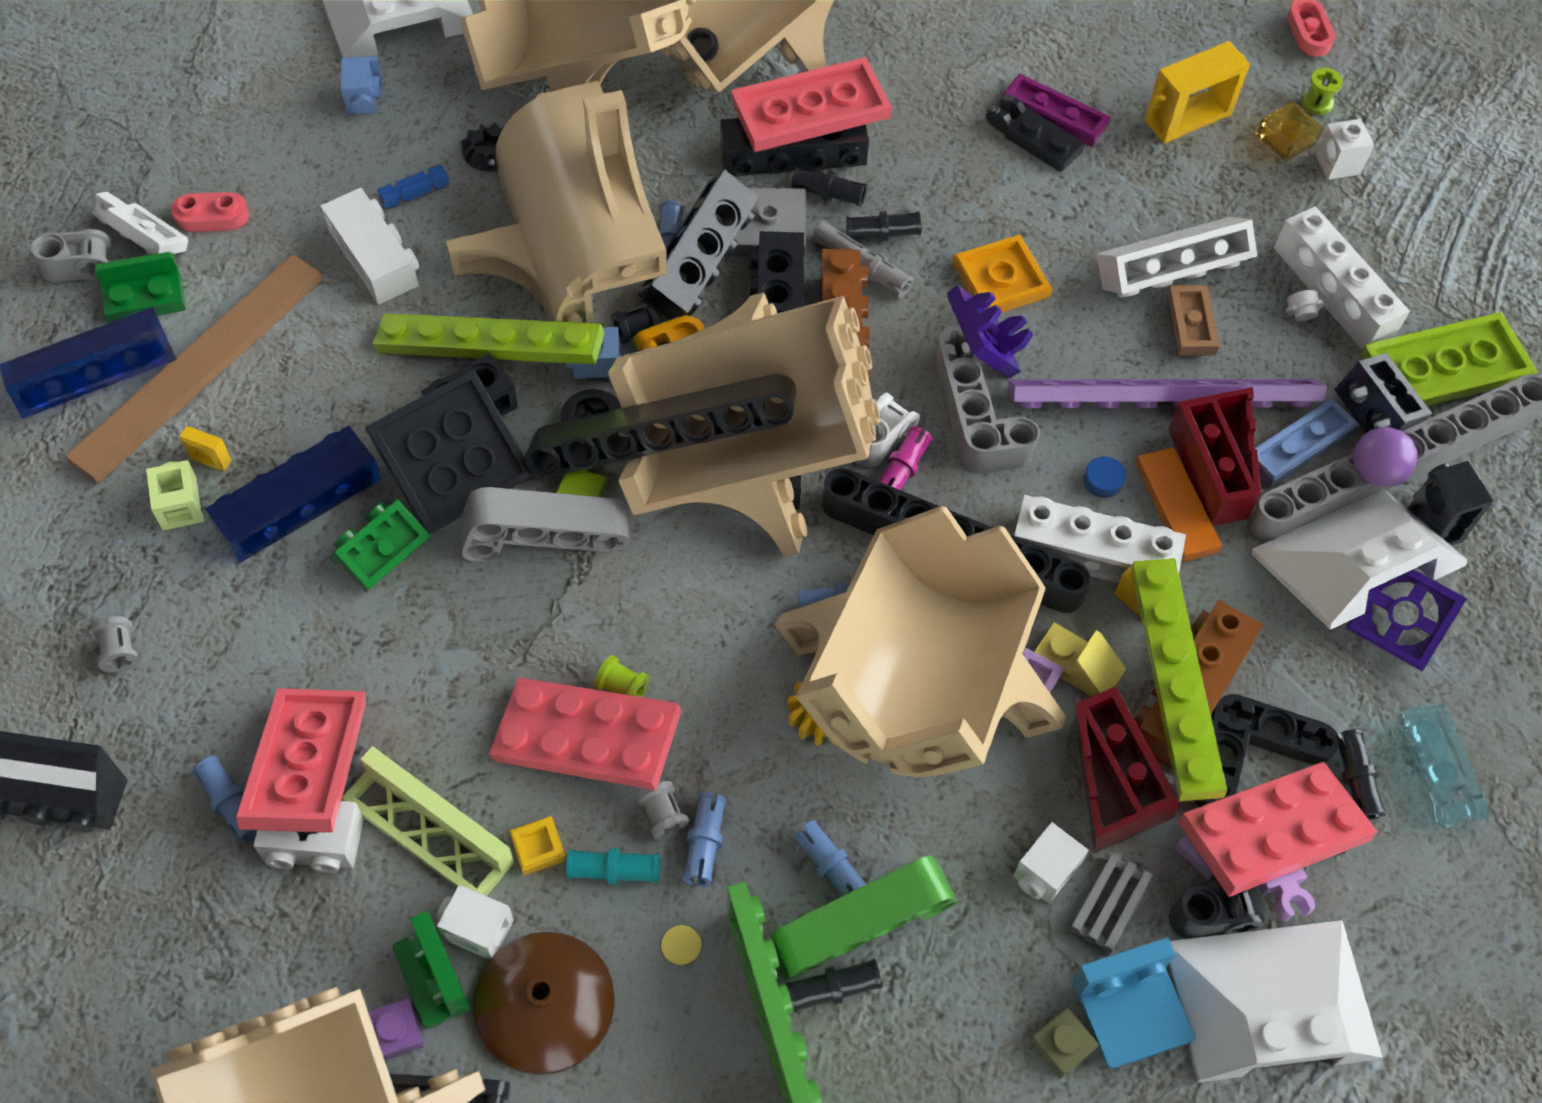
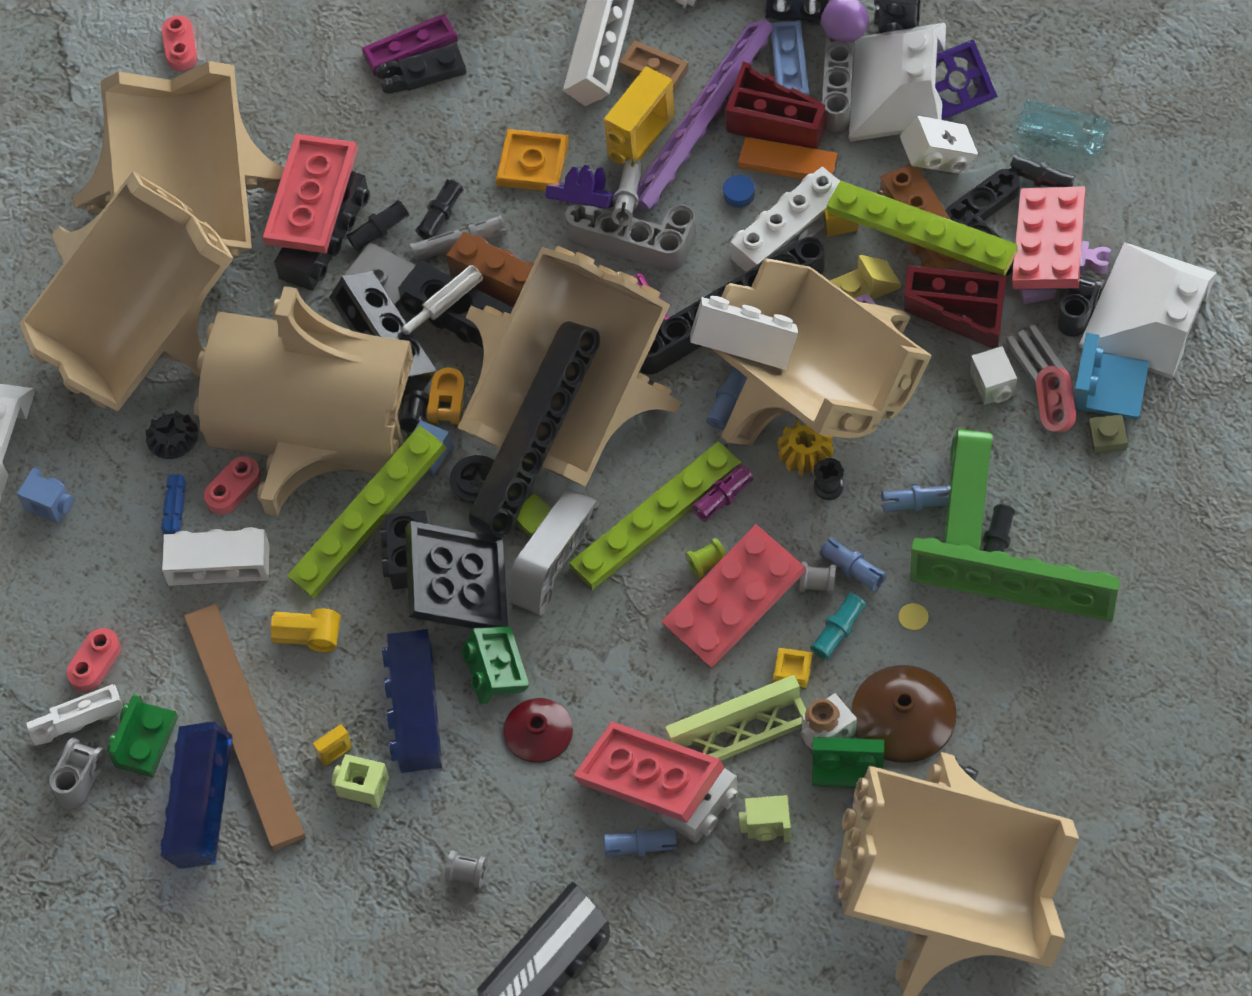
camera: 50 degrees left, 0 degrees up
(316, 920) = (766, 818): none -> yellowish green brick
(328, 644) = (541, 743): none -> dark red dish
(331, 364) = (315, 630): none -> yellow piece
(457, 219) = (234, 484): none -> coral plate
(460, 895) = (825, 707): none -> medium nougat plate
(652, 605) = (653, 516): none -> lime plate
(715, 655) = (722, 493): none -> magenta pin
(770, 272) = (445, 297): none -> white axle
(808, 748) = (828, 479): none -> black bush
(902, 559) = (744, 332): none -> white brick
(1007, 369) = (626, 197): none -> light grey pin
(1063, 952) = (1053, 401): none -> coral plate
(1114, 313) = (639, 117): none -> yellow window
(1305, 639) = (938, 145): none -> white brick

